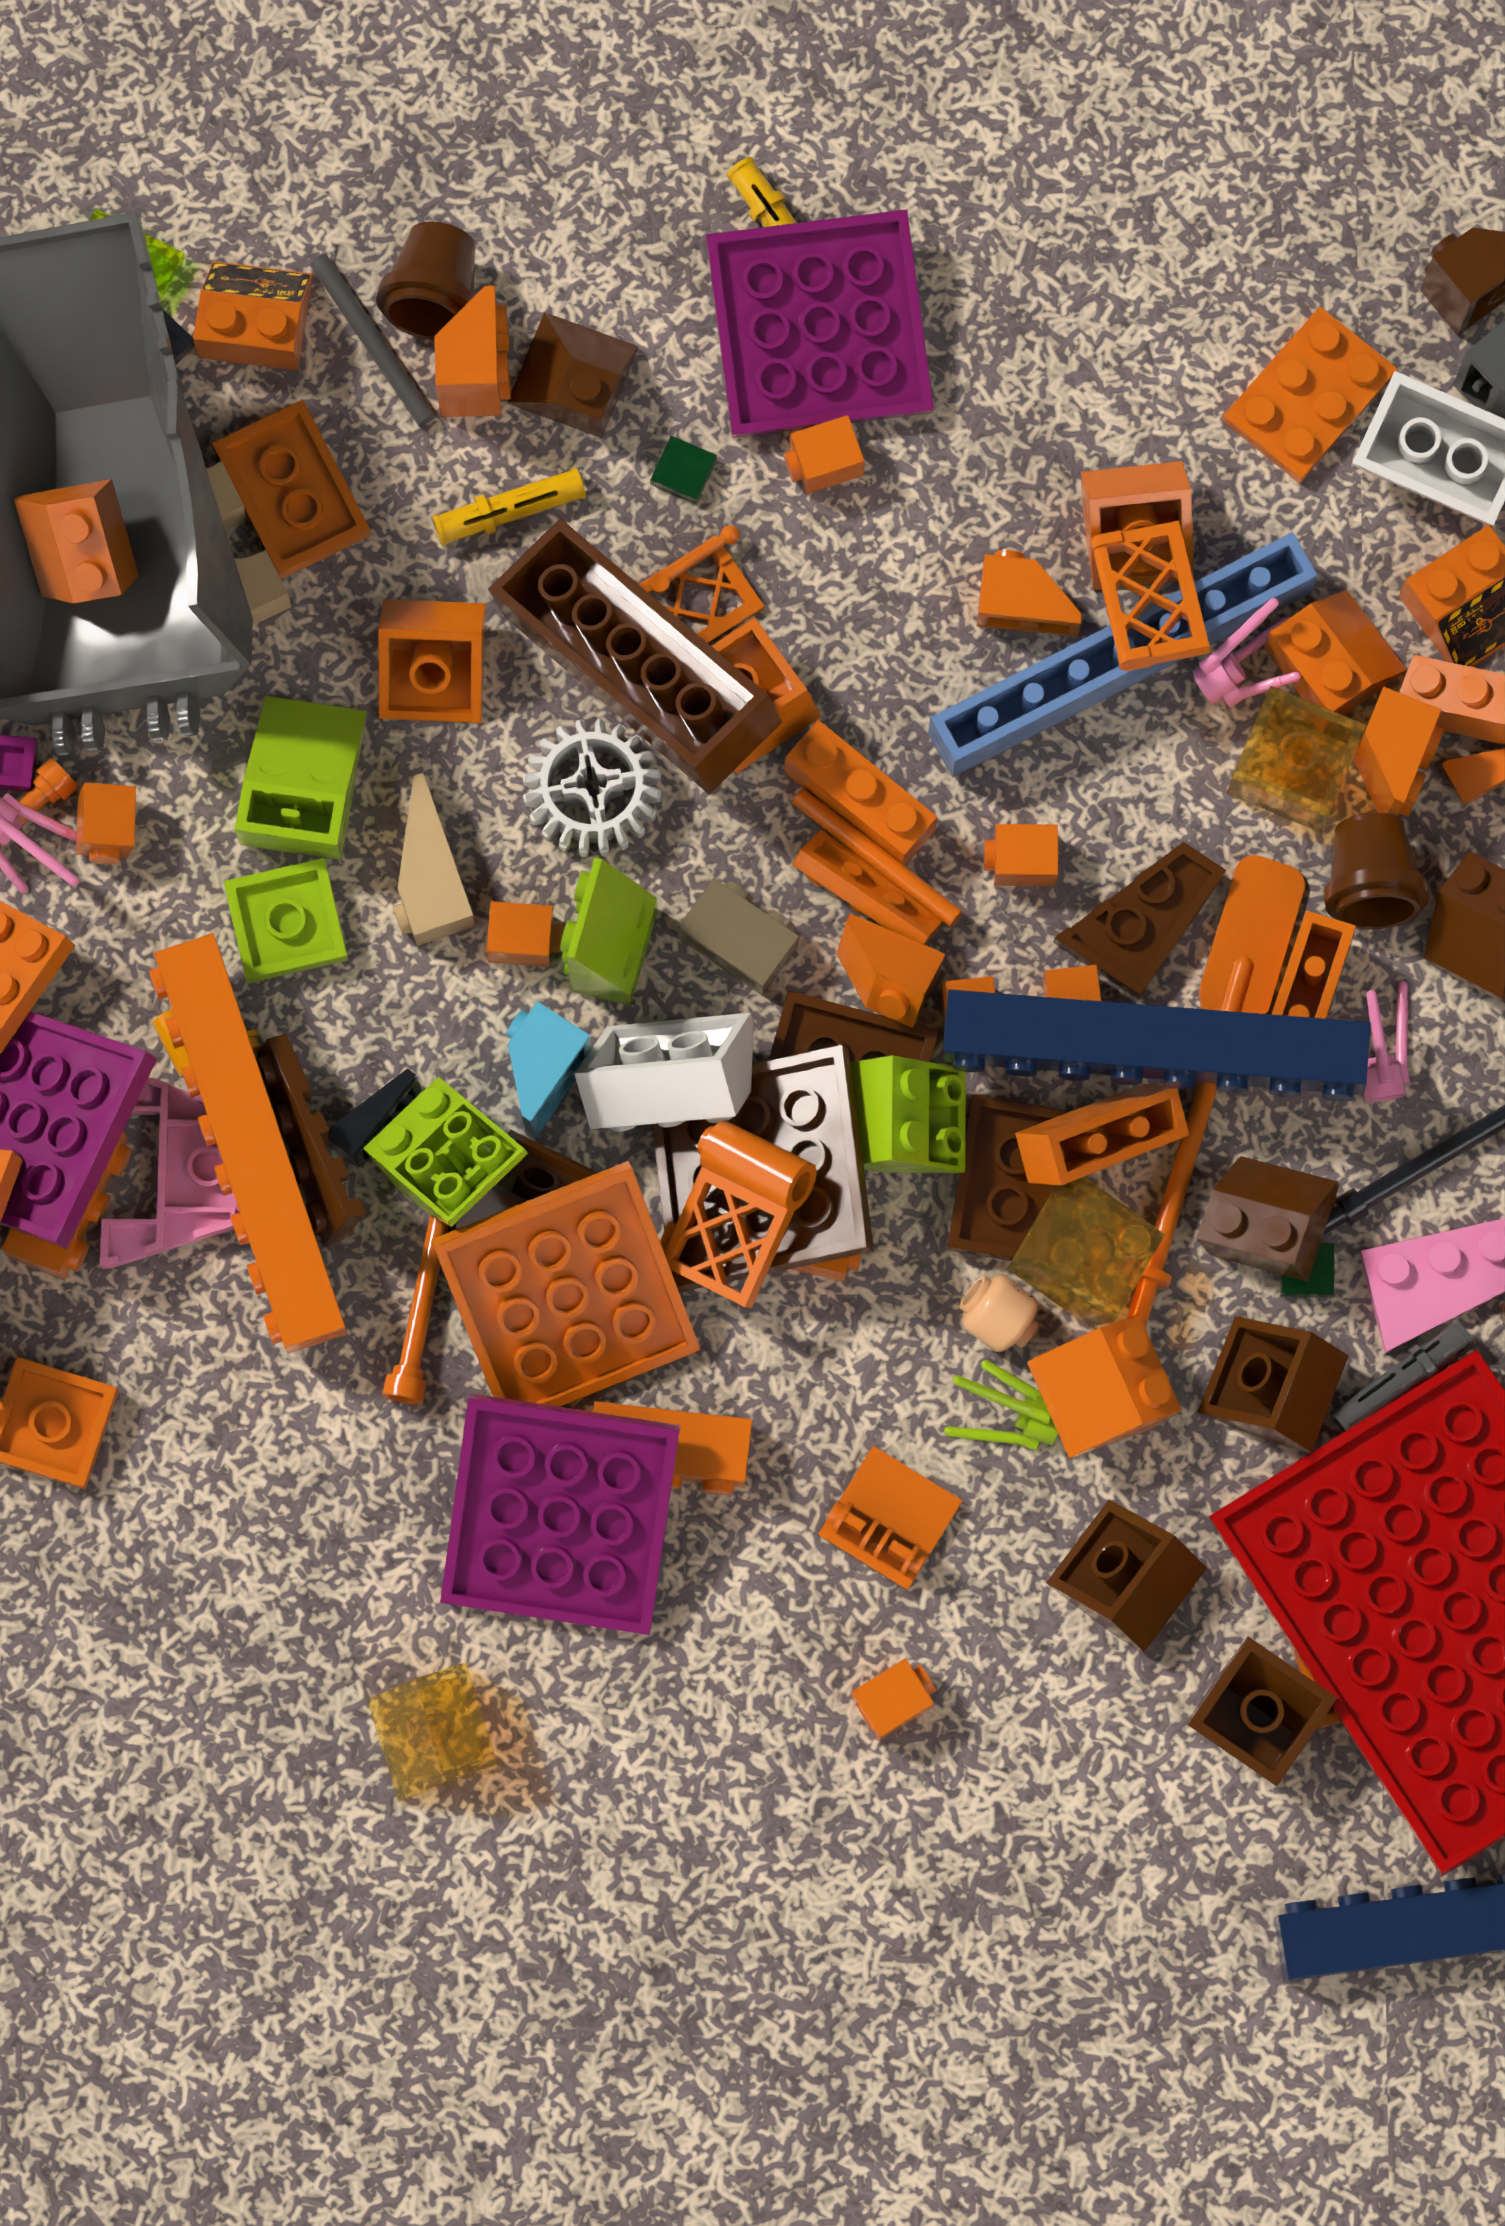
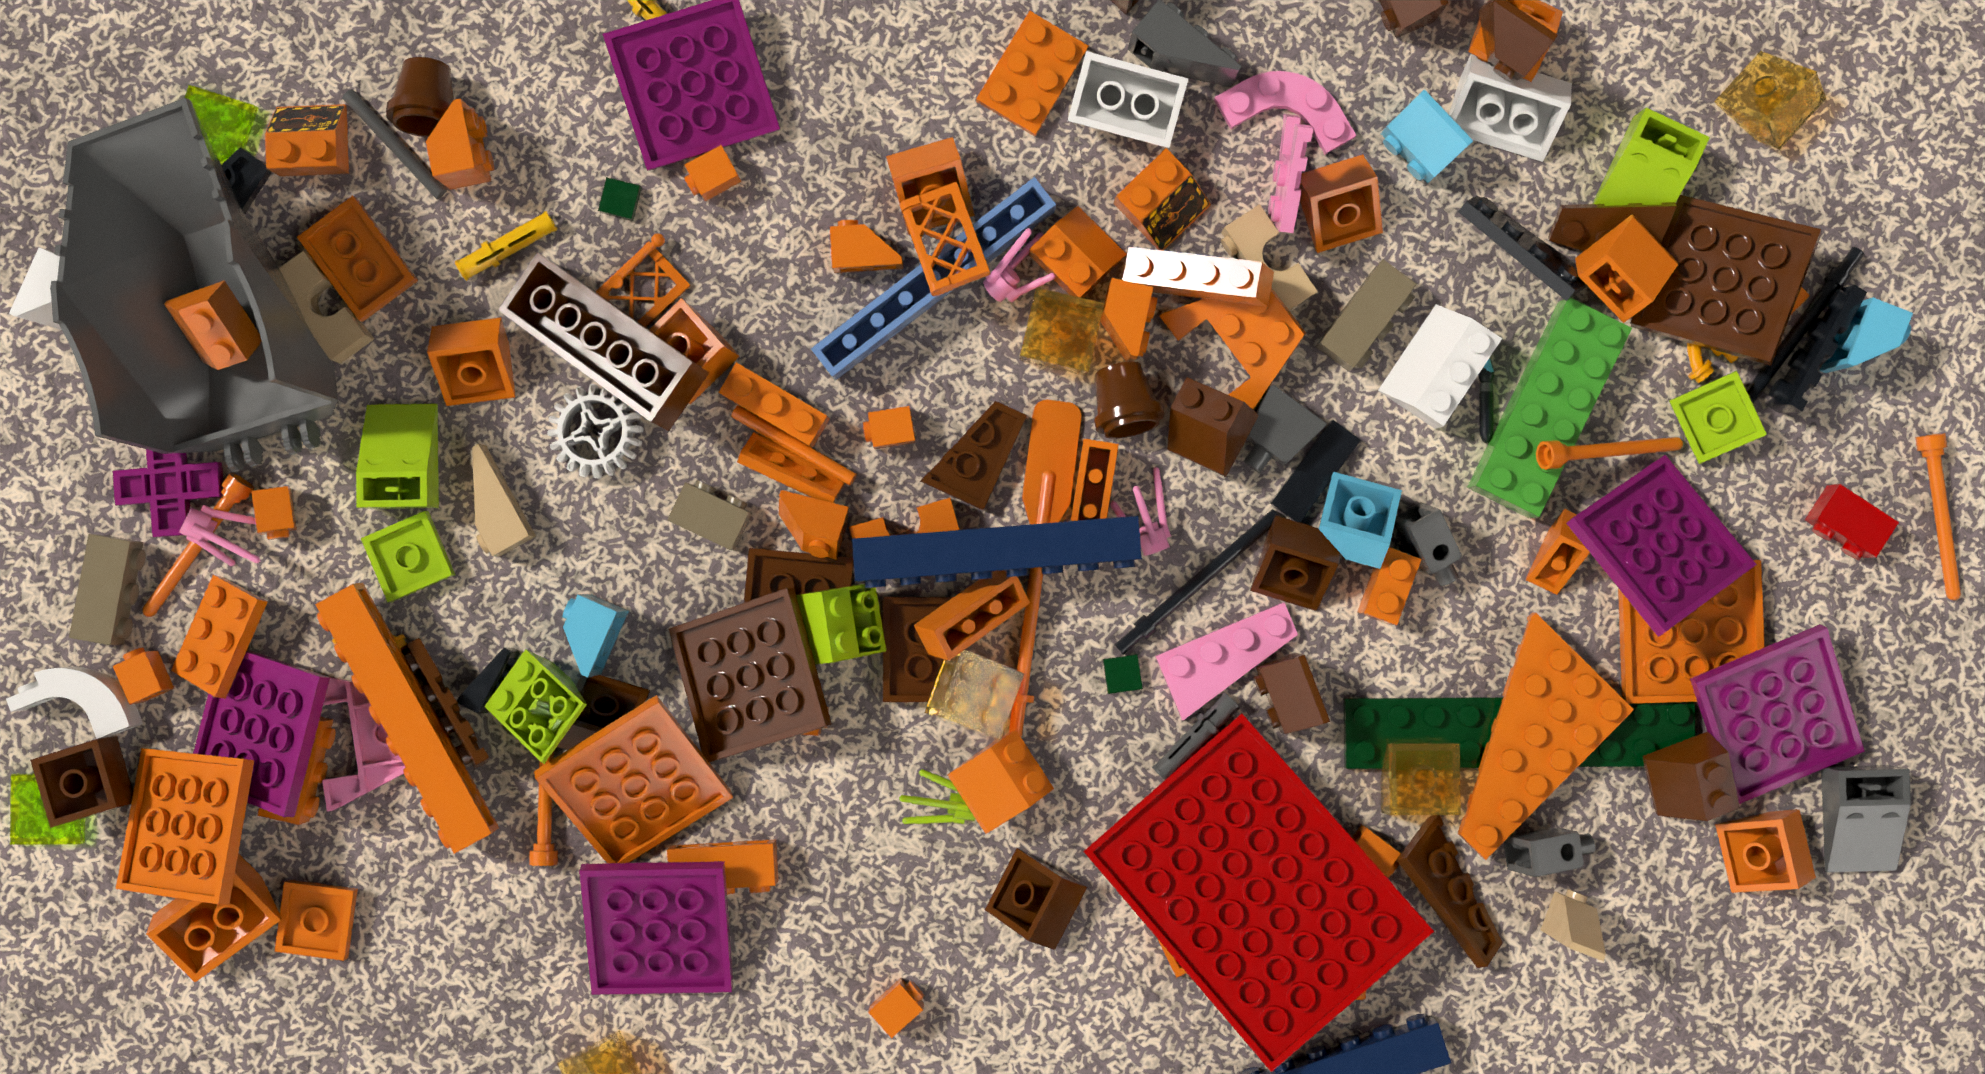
camera: 10 degrees left, 10 degrees up
(522, 934) = (566, 539): orange brick -> none
(573, 375) = (534, 145): reddish brown slope -> none
(610, 936) = (619, 534): lime slope -> none
(668, 1072) = (676, 620): white slope -> none
(745, 1170) = (742, 686): orange piece -> none
(890, 1517) = (876, 885): orange hinge -> none
(999, 1313) = (924, 740): light nougat head -> none
(1261, 1710) = (1135, 981): reddish brown slope -> none
(1268, 1217) = (1091, 645): reddish brown slope -> none
(1274, 1382) = (1111, 756): reddish brown slope -> none

